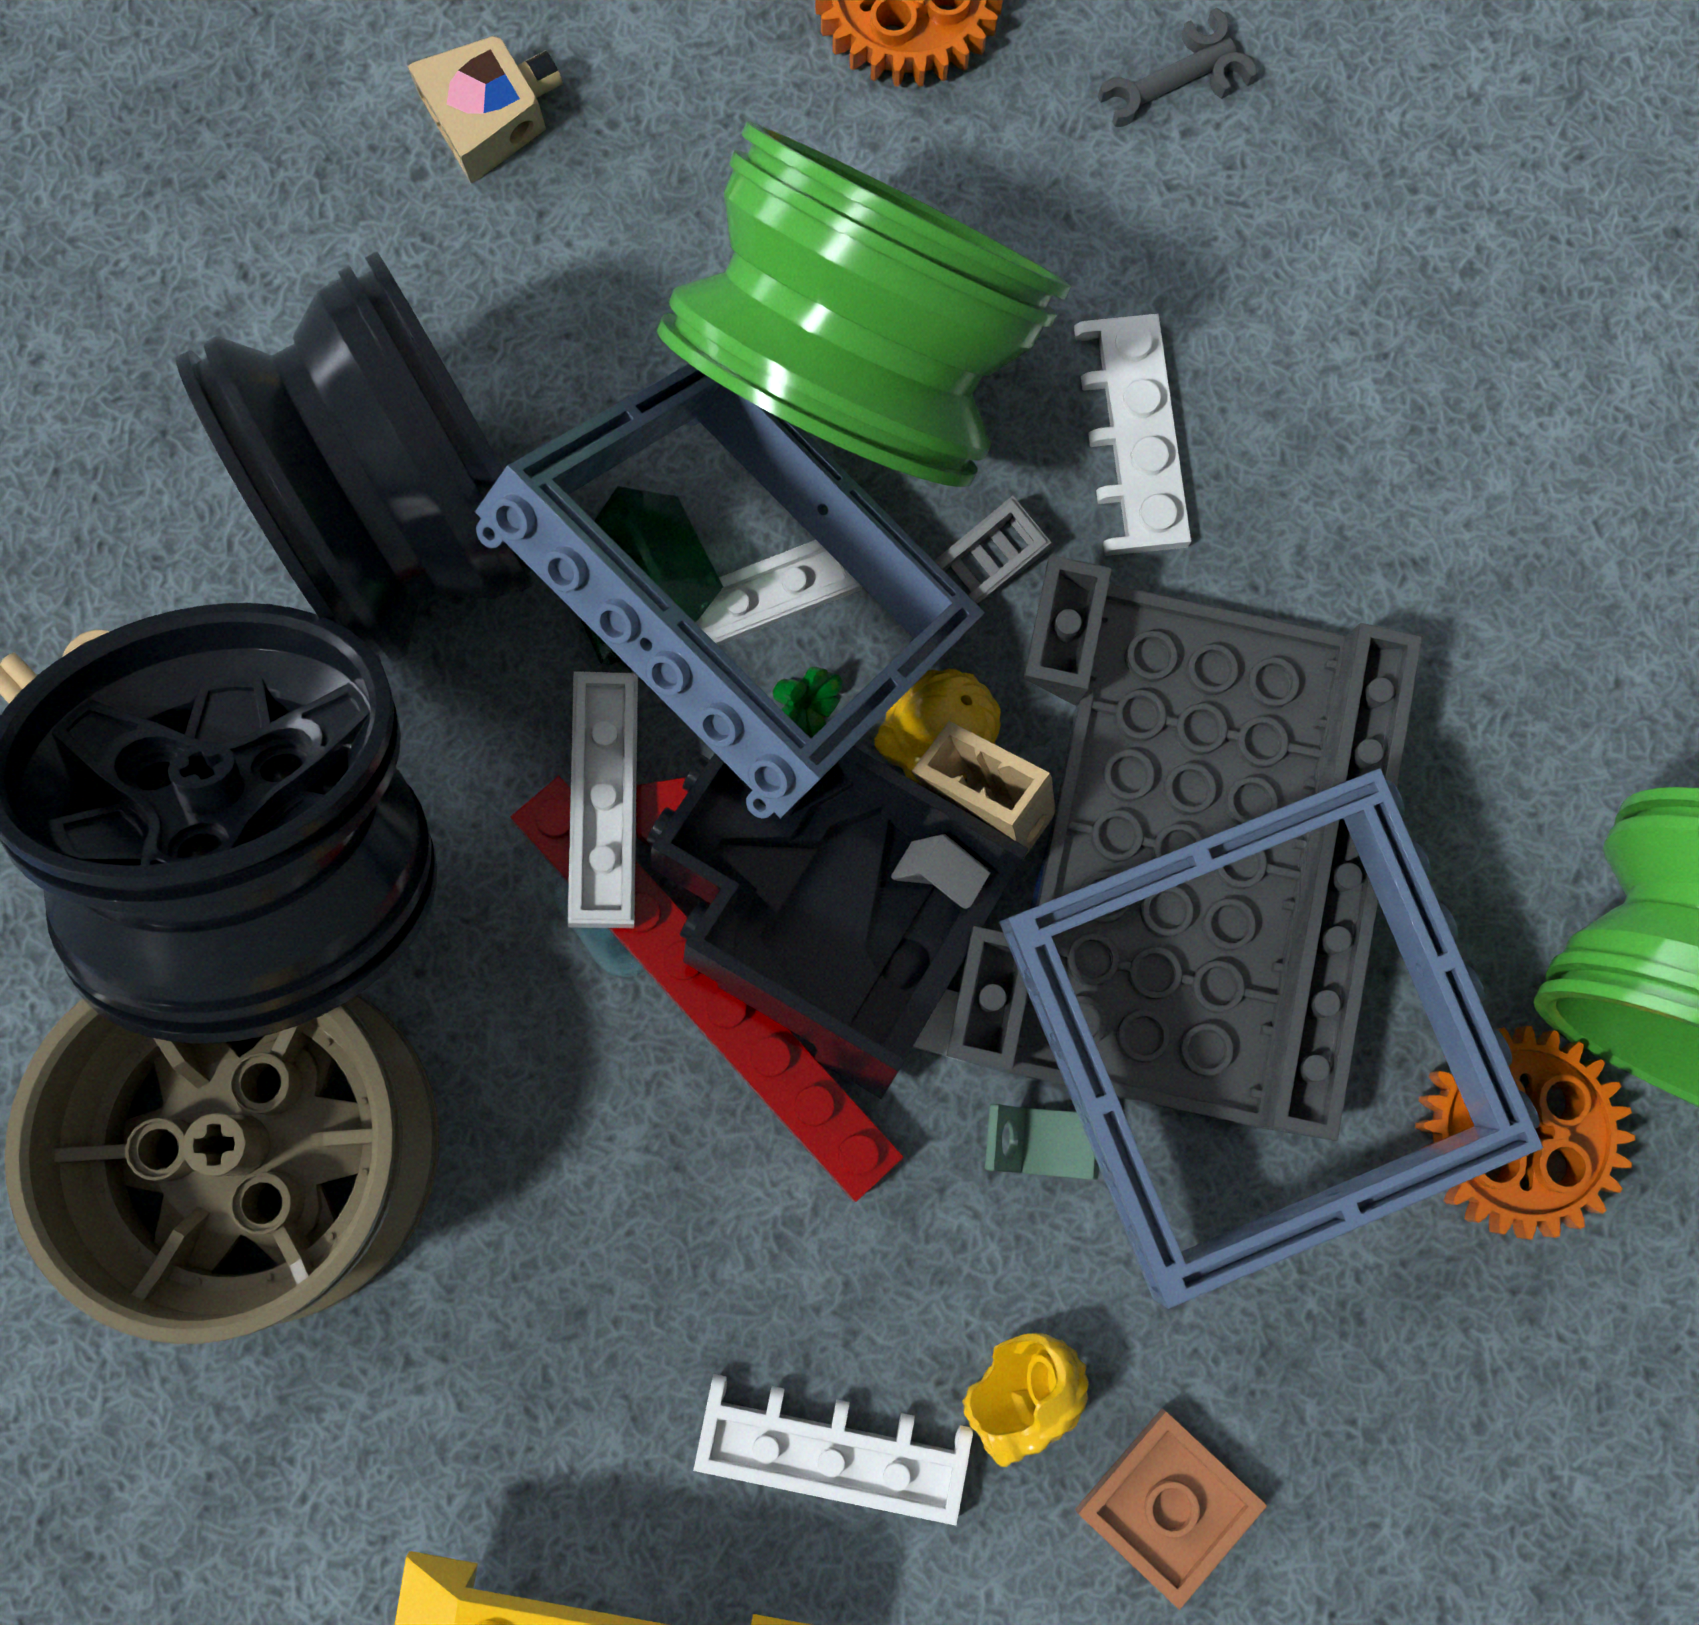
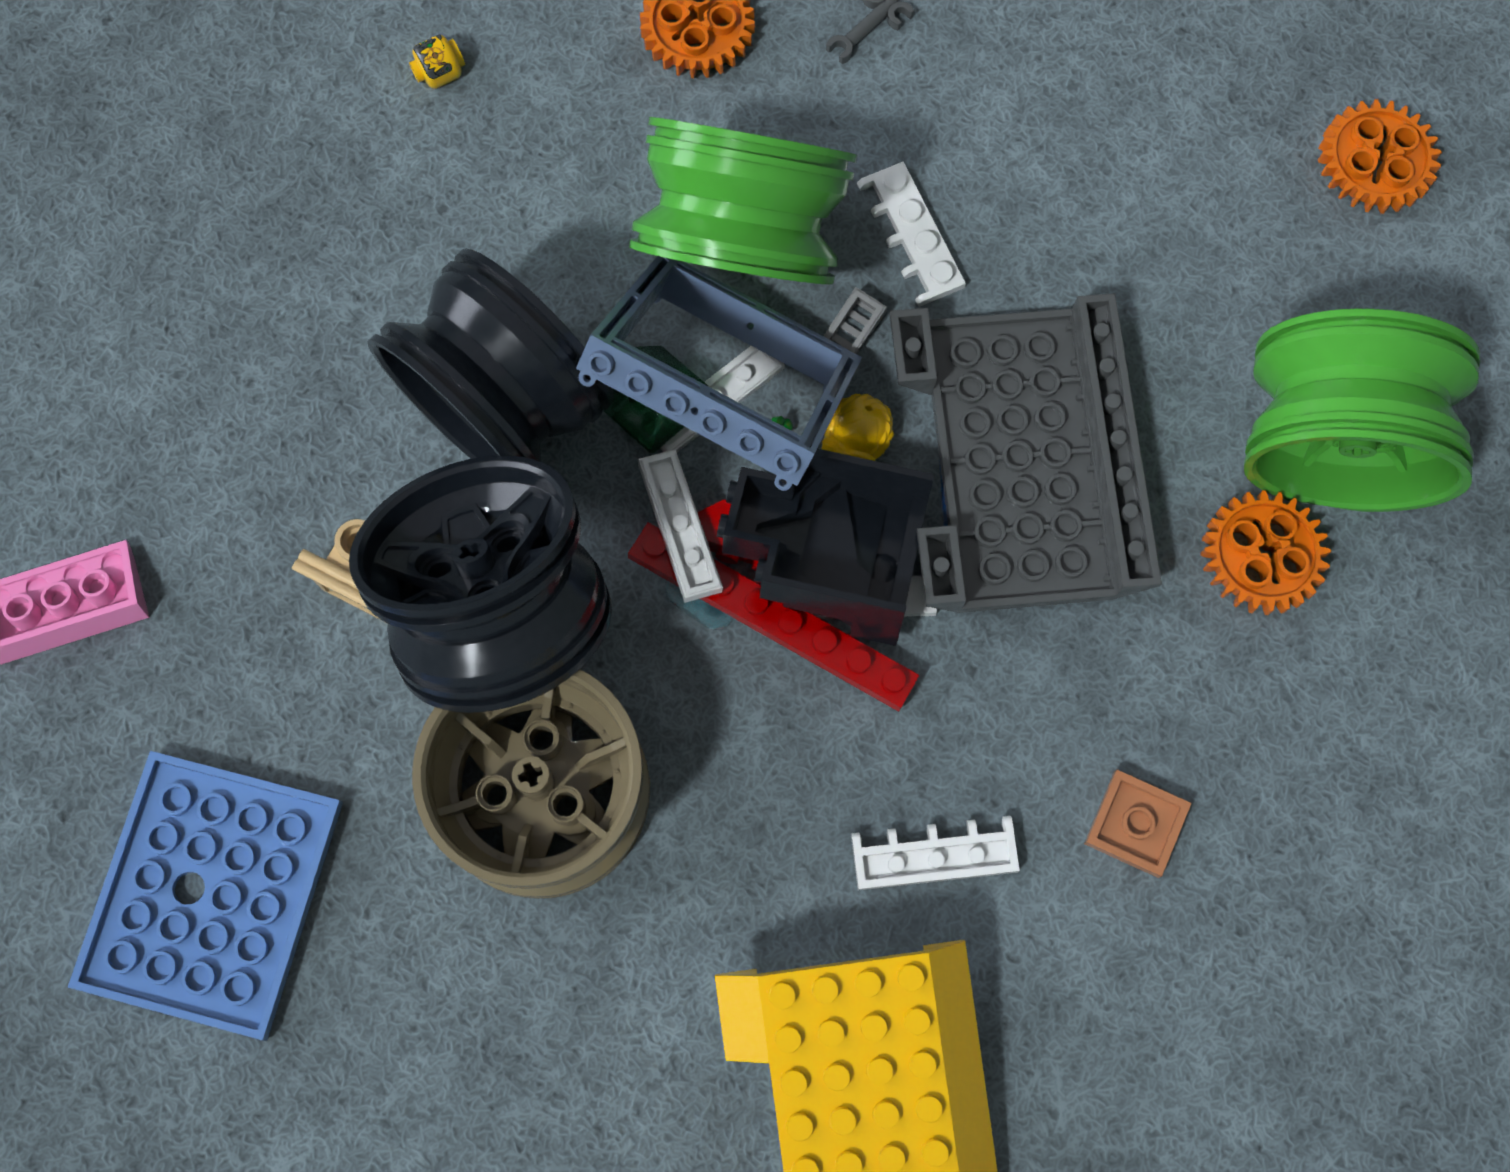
camera: 15 degrees left, 5 degrees down
(484, 100) = (469, 155): tan torso -> none
(944, 865) = (887, 503): light grey slope -> none
(999, 785) = (899, 445): tan torso -> none
(1027, 1397) = (1029, 799): yellow hair -> none
(1039, 1143) = (997, 642): sand green bracket -> none
(1446, 986) = (1173, 456): sand blue window -> none

